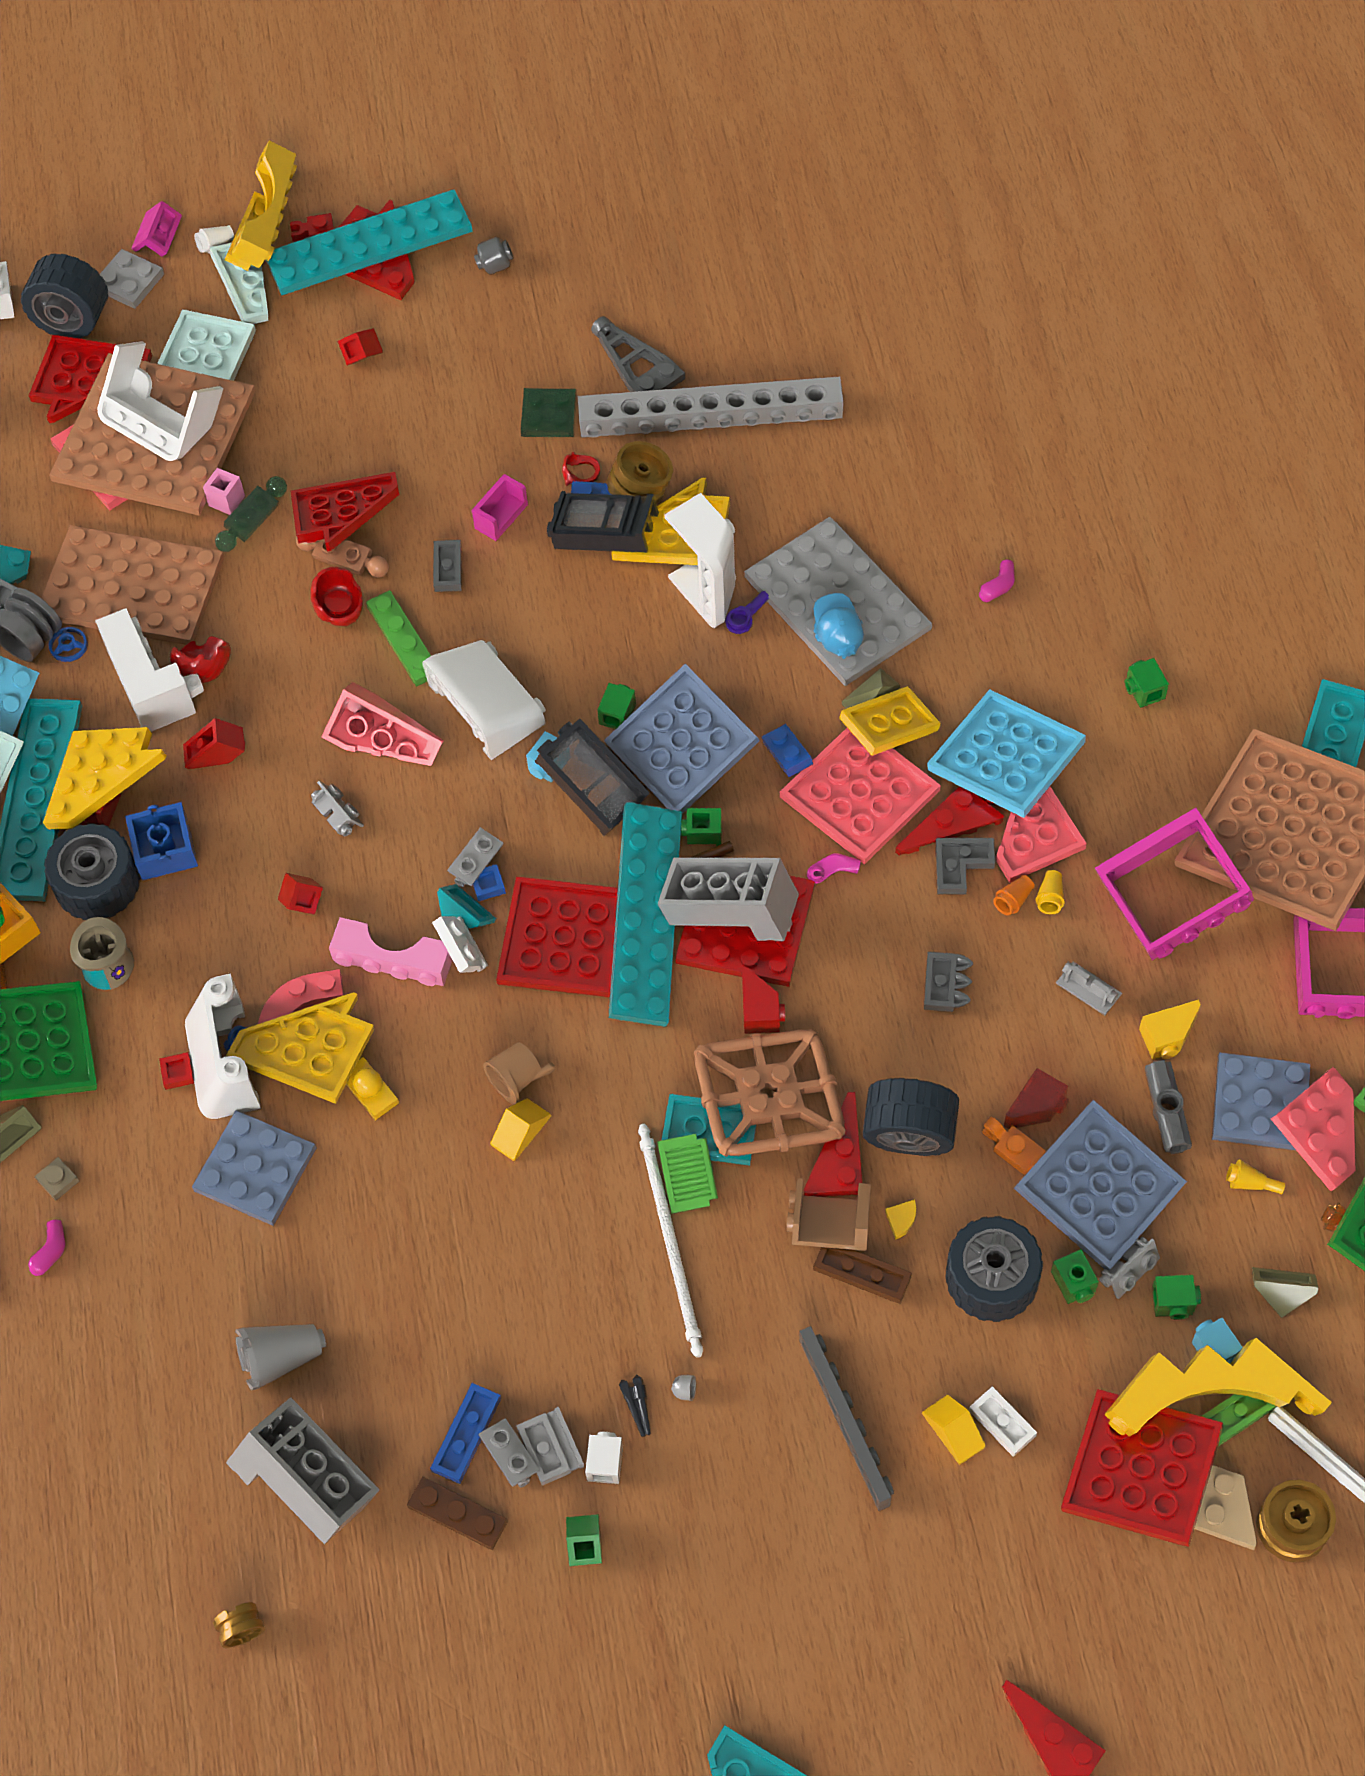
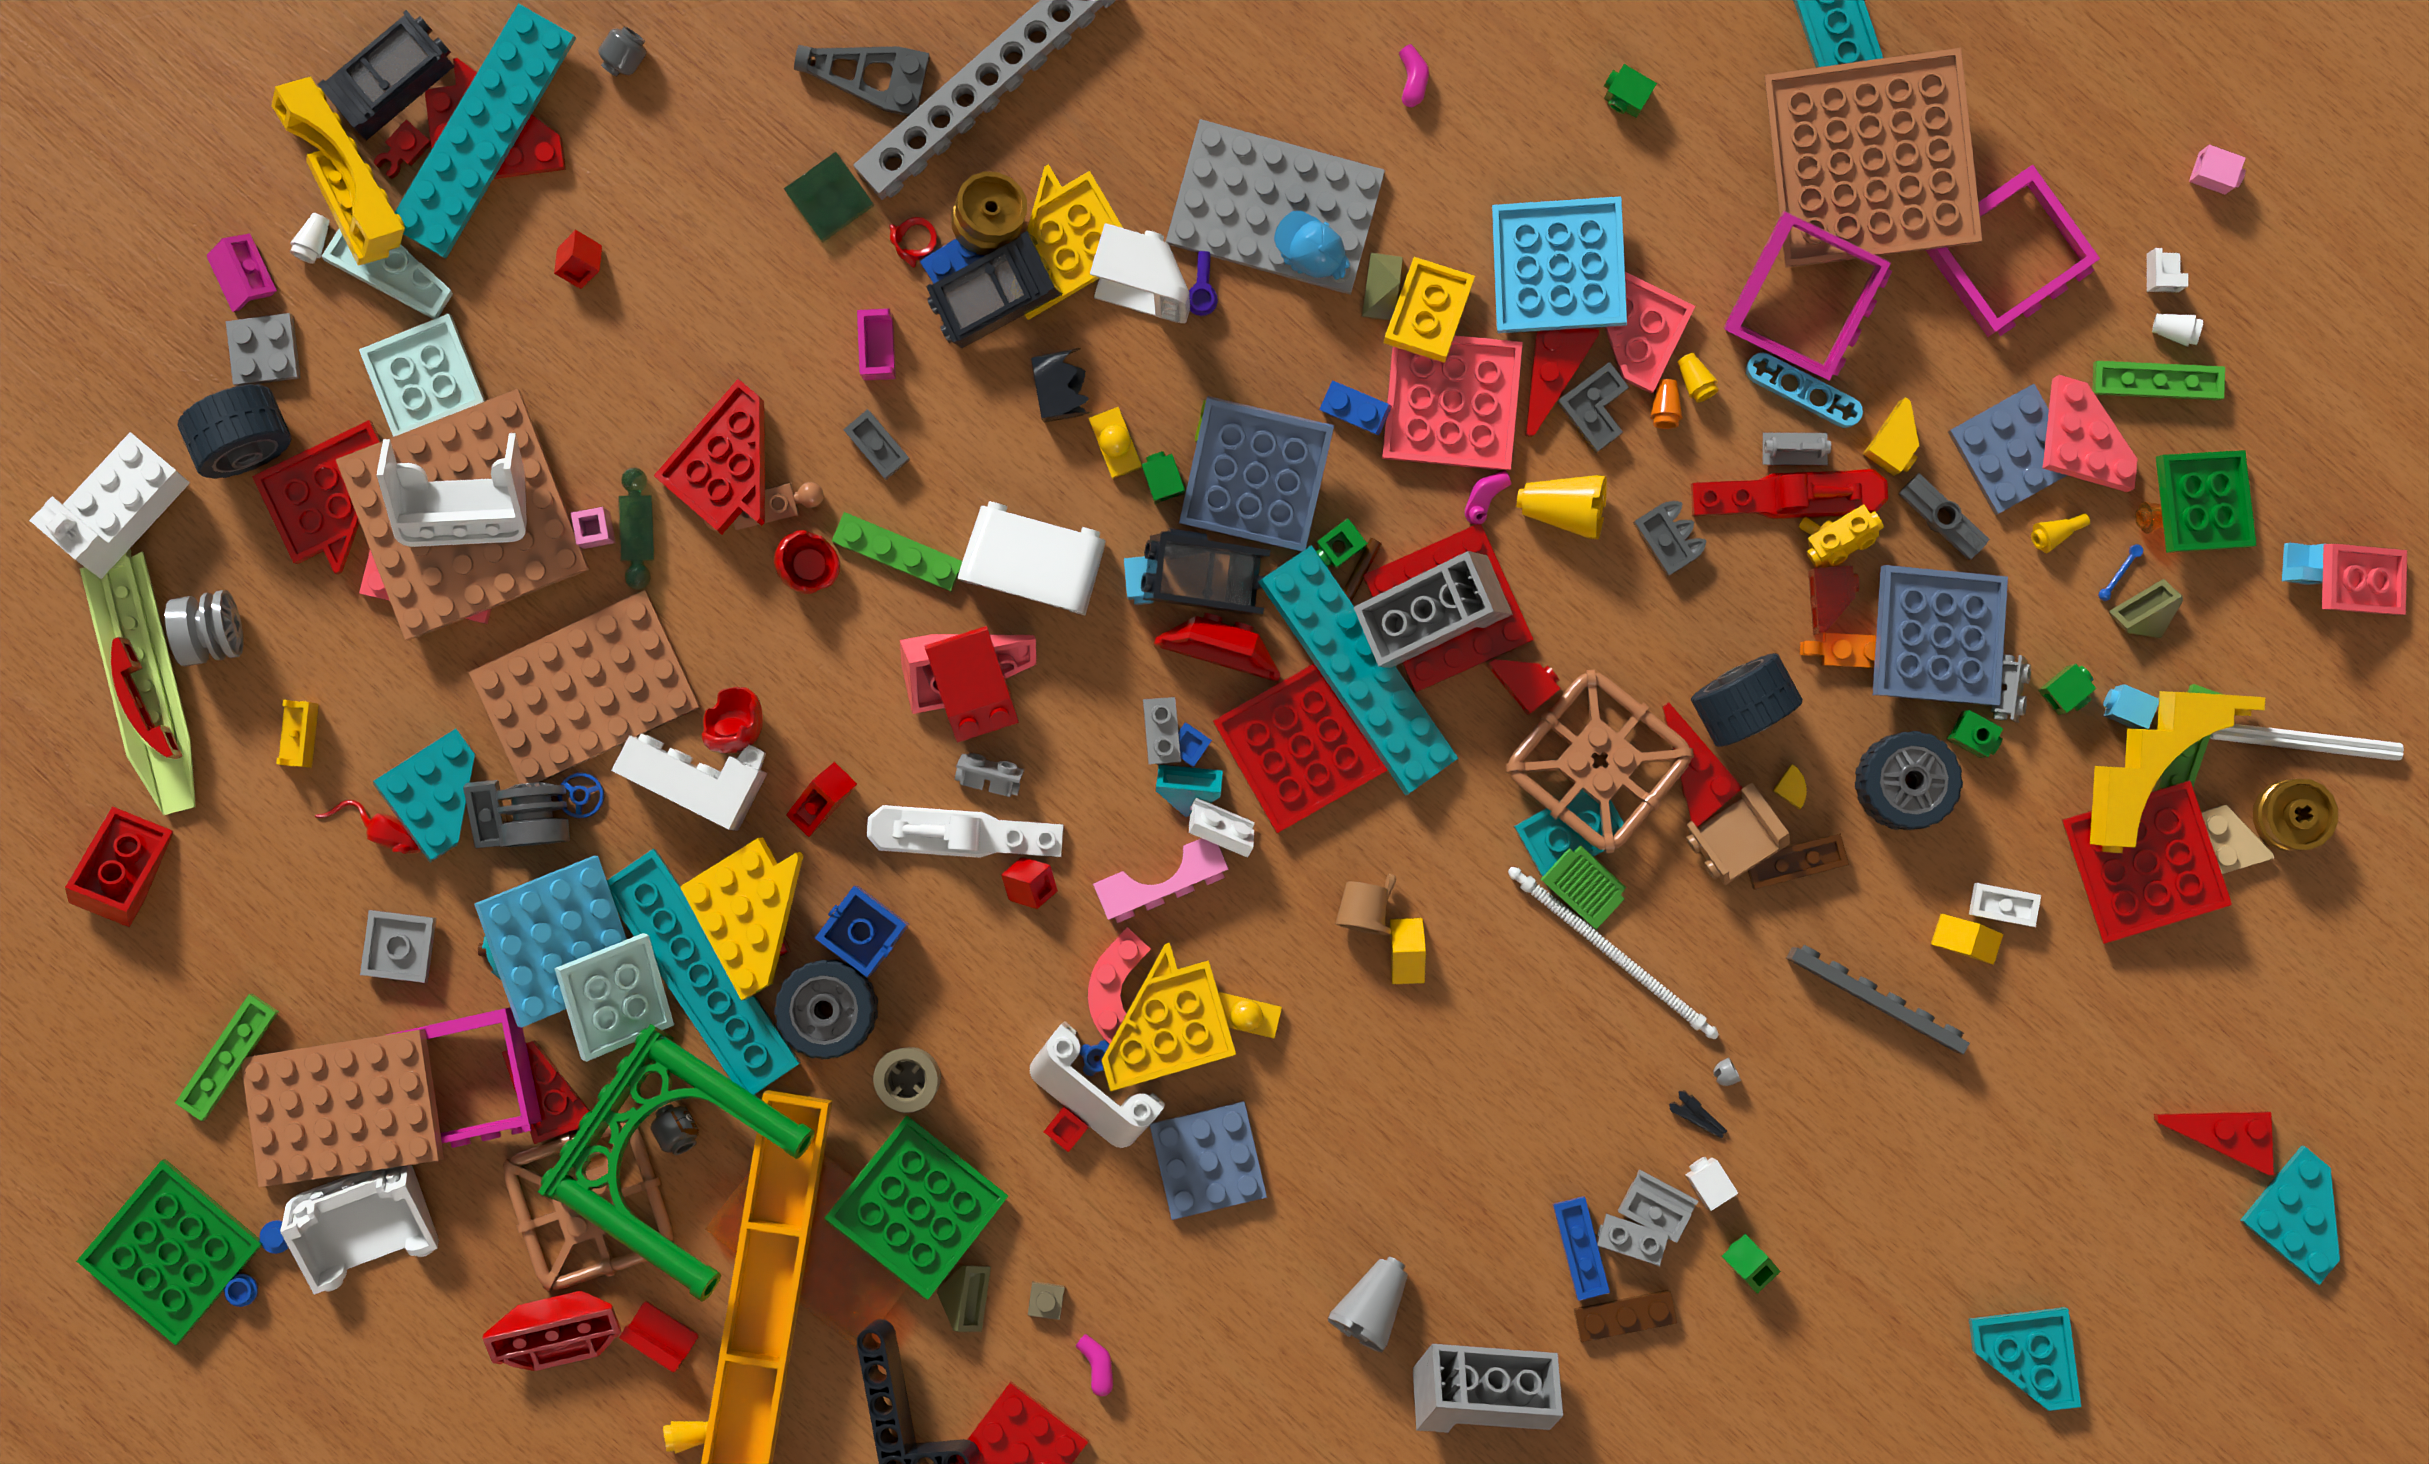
camera: 45 degrees left, 25 degrees up
(284, 833) = (959, 833): none -> white piece
(342, 181) = (388, 75): none -> black door
(374, 734) = (972, 684): none -> red slope
(562, 832) = (1221, 645): none -> red wedge
(596, 607) = (1058, 386): none -> black piece
(604, 666) = (1115, 442): none -> yellow tile
(889, 907) = (1567, 503): none -> yellow cone
(1062, 1018) = (1793, 495): none -> red piece
(1078, 1065) = (1836, 540): none -> yellow brick
(1122, 955) = (1801, 395): none -> medium azure beam
(1306, 1239) = (2134, 551): none -> blue hinge

